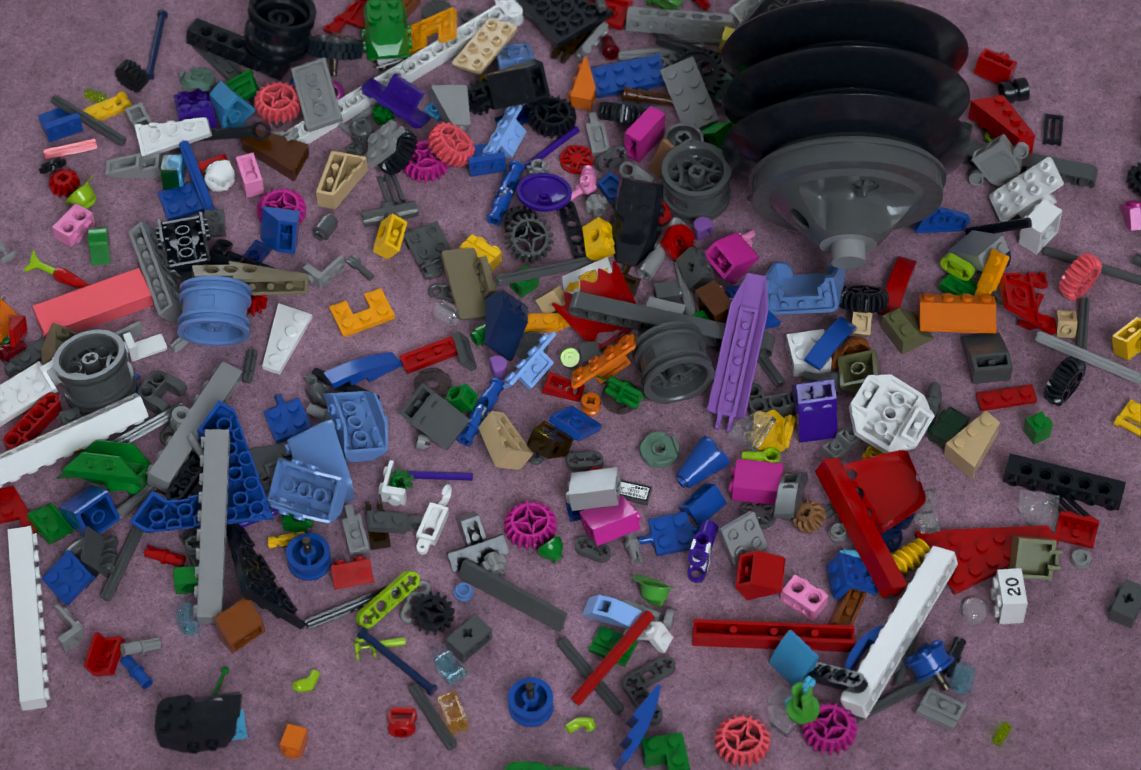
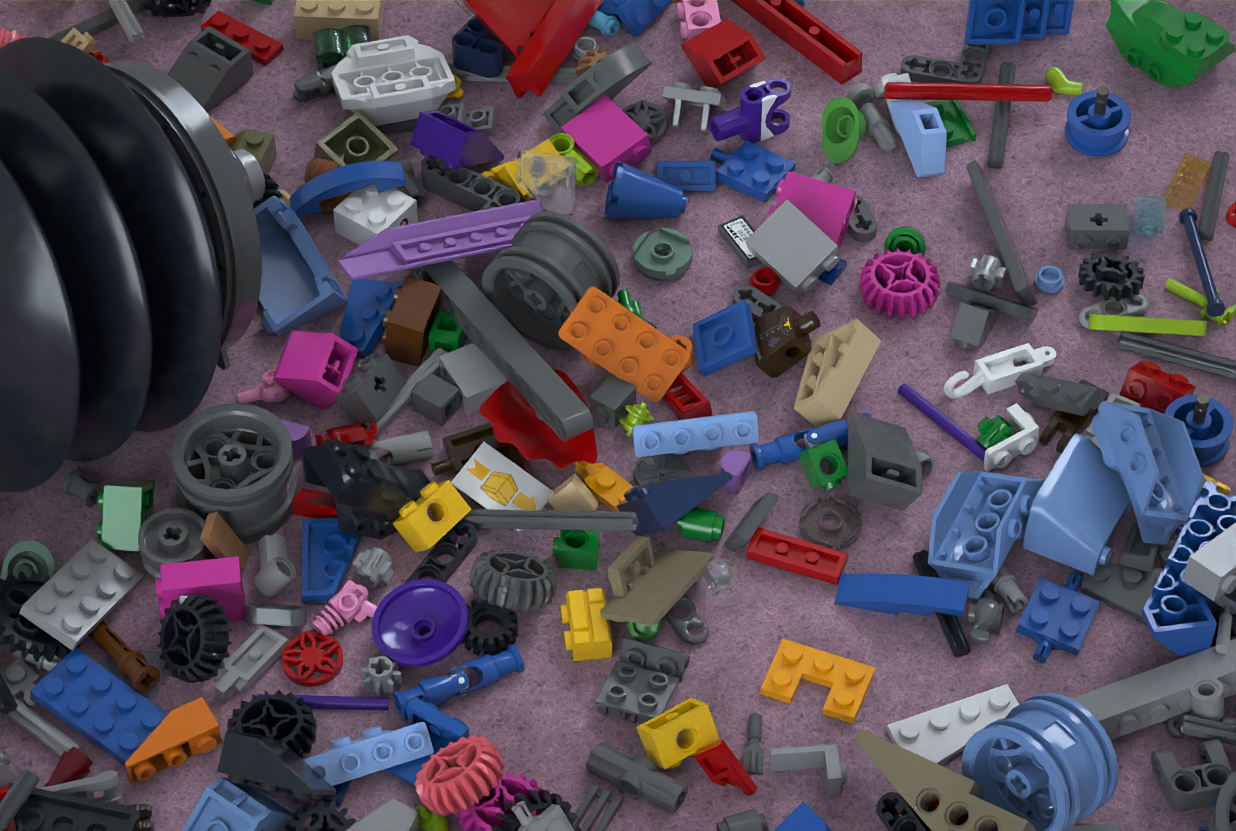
camera: 135 degrees left, 5 degrees down
(357, 242) = (724, 767): none -> red tile

